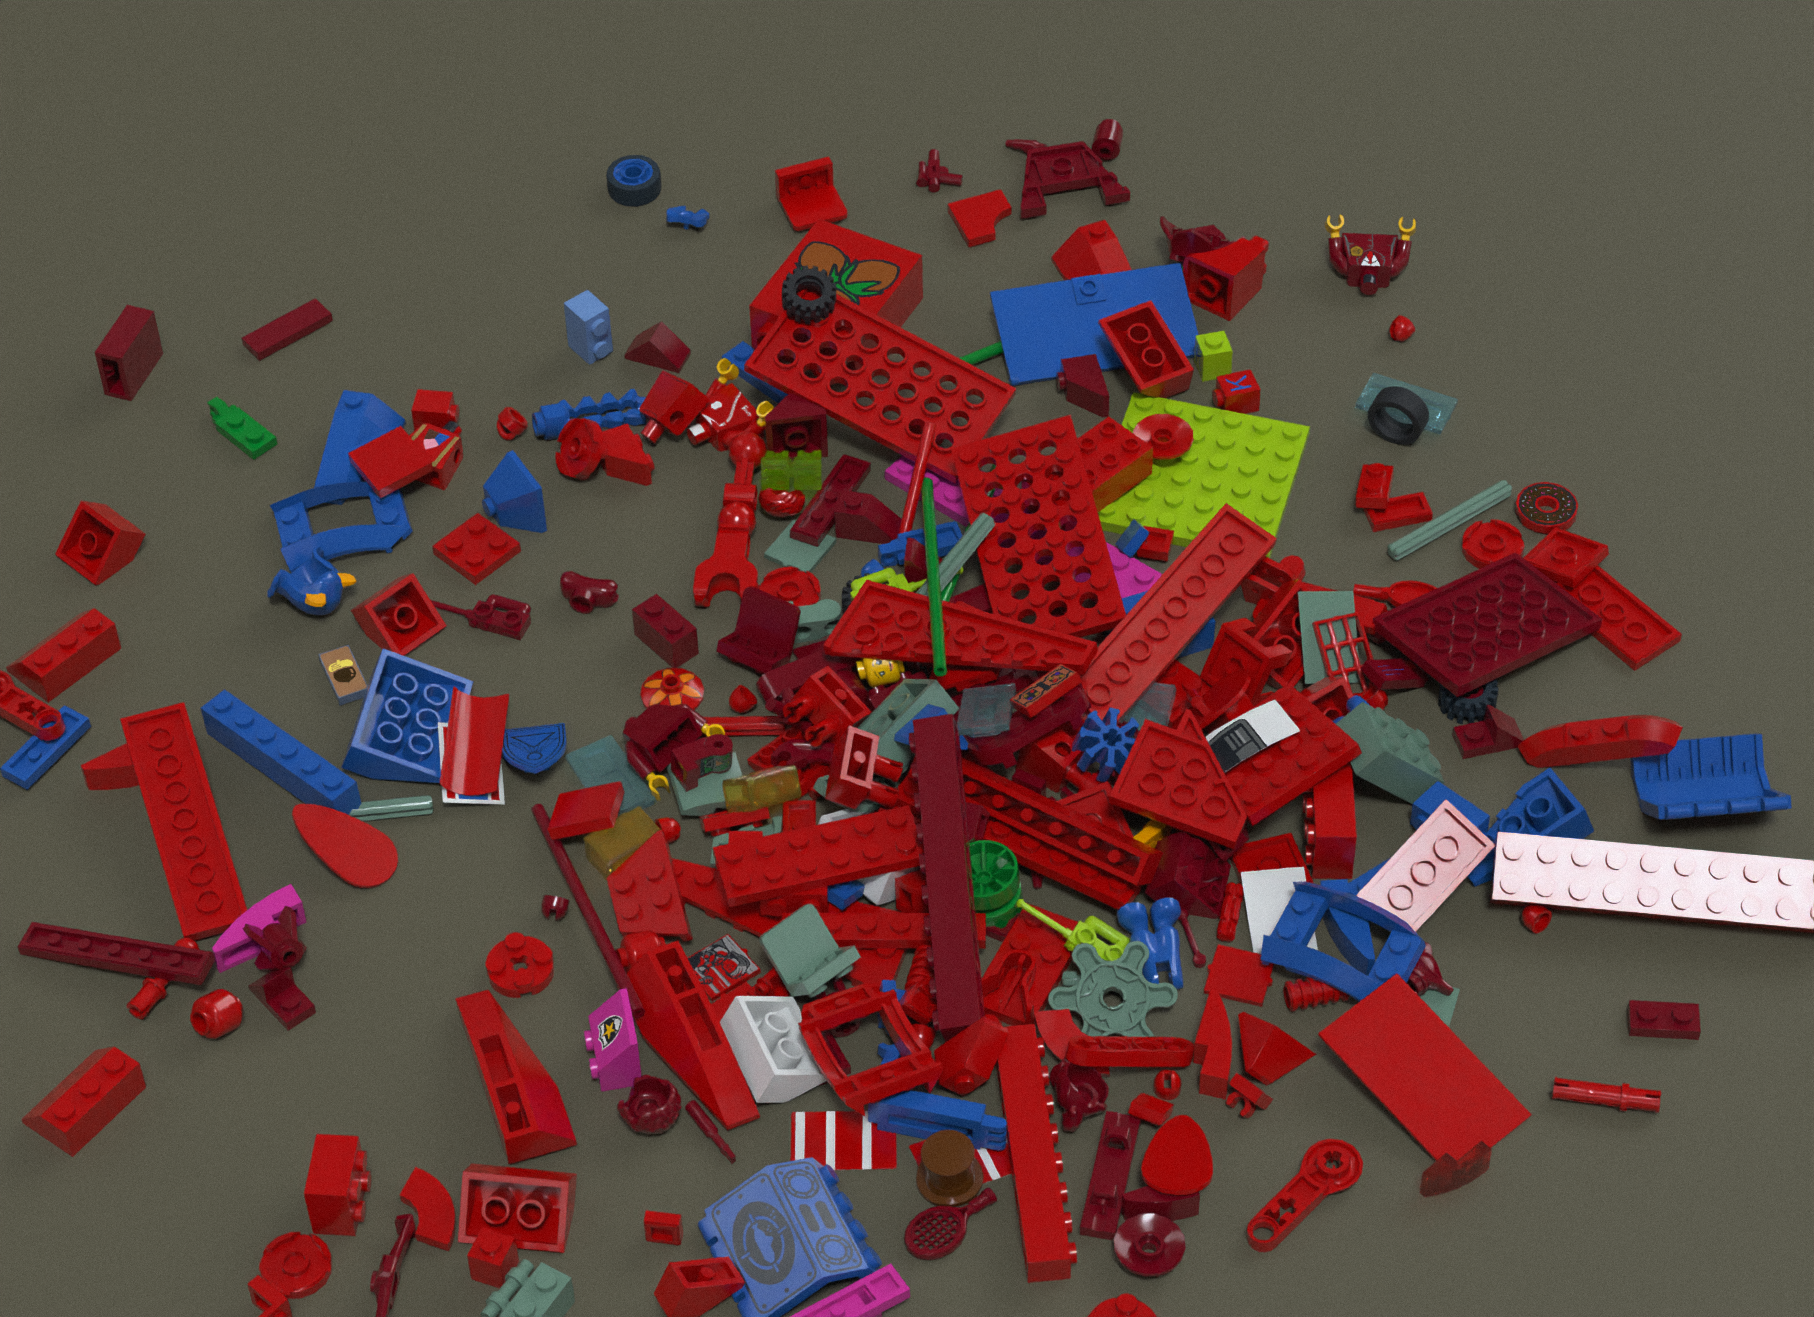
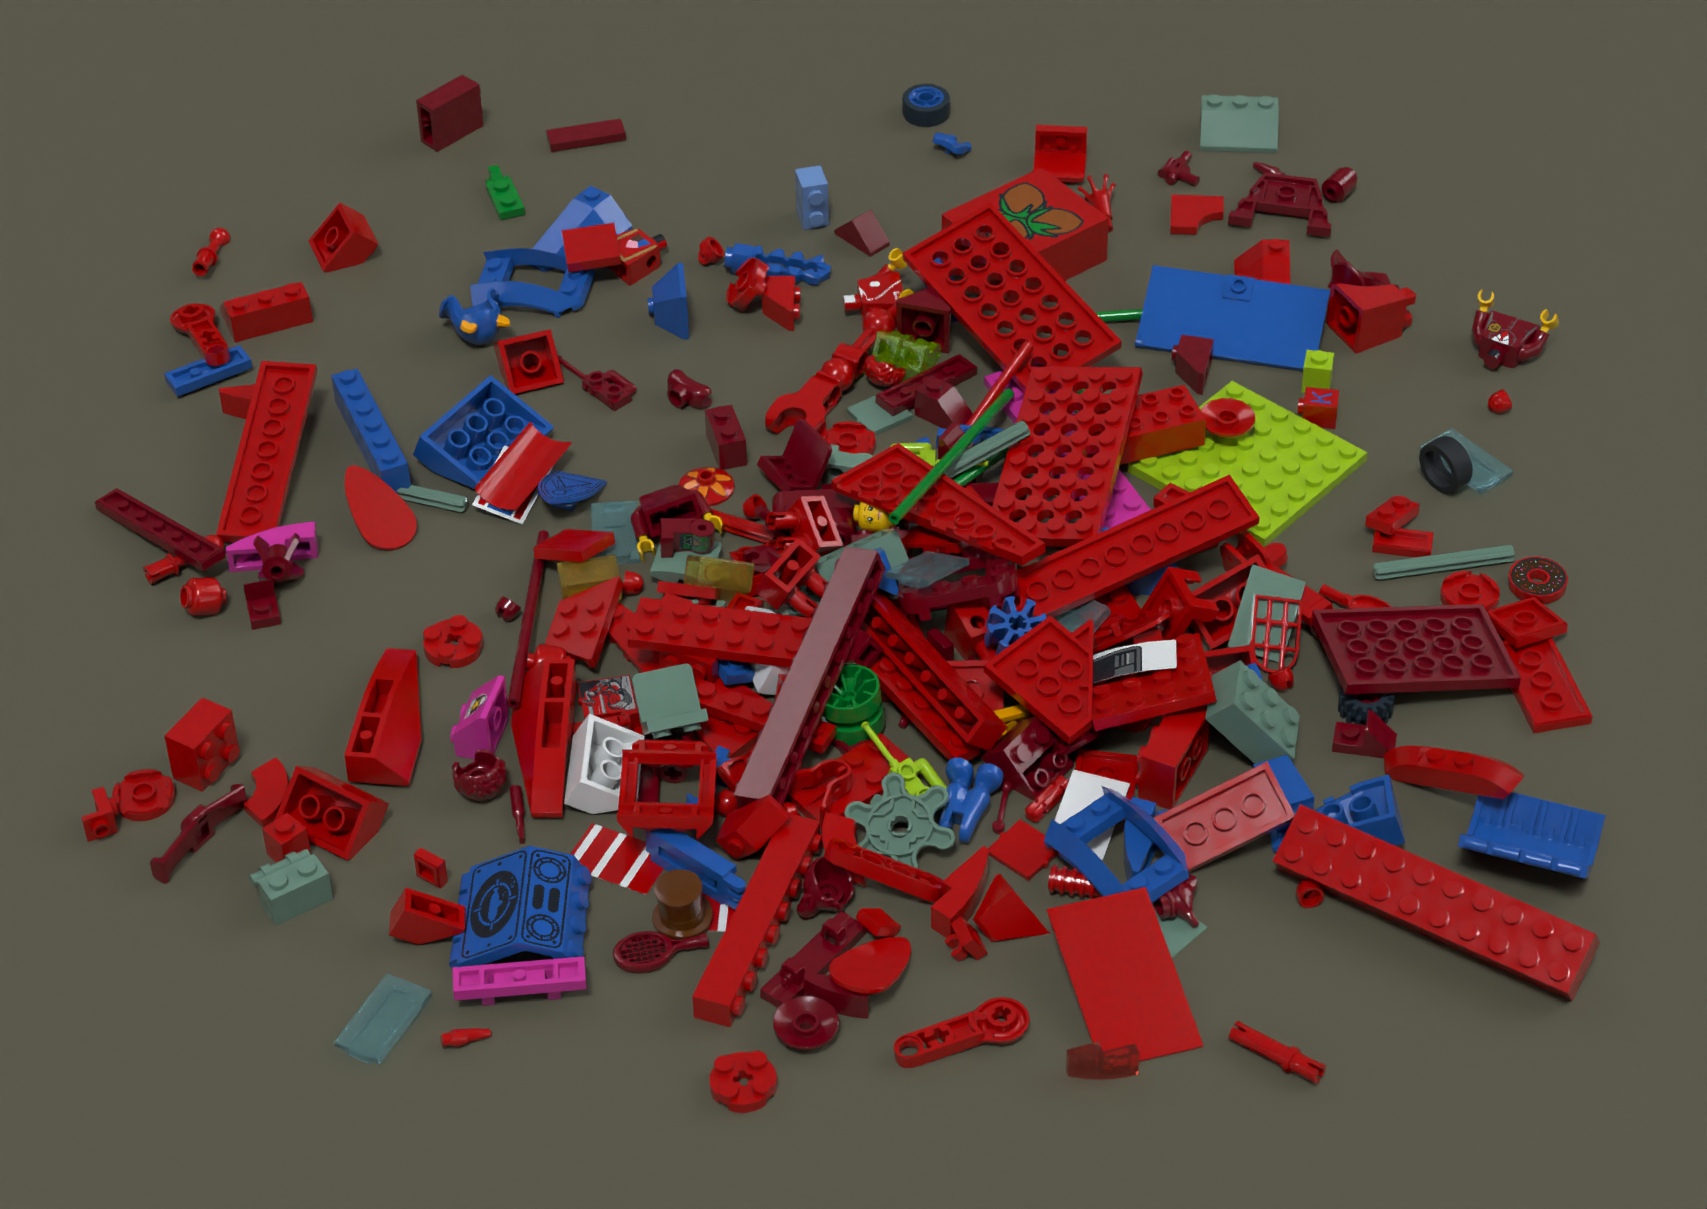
camera: 25 degrees right, 5 degrees down
(87, 1099) = (72, 625): red slope -> none
(343, 674) = (460, 385): tile -> none
(434, 408) = (655, 221): red brick -> none
(476, 548) = (624, 334): red plate -> none
(670, 406) = (844, 269): red torso -> none
(808, 309) = (981, 200): black tyre -> none
(879, 231) = (1100, 198): none -> red piece
(968, 103) = (1239, 123): none -> sand green slope
(1045, 690) = (979, 566): tile -> none
(1132, 538) = (1153, 488): blue tile -> none
(1148, 350) = (1256, 349): red slope -> none
(1167, 1093) = (911, 913): red hinge -> none
(1394, 673) = (1307, 662): dark red tile -> none
(1664, 1019) = (1370, 1013): dark red plate -> none

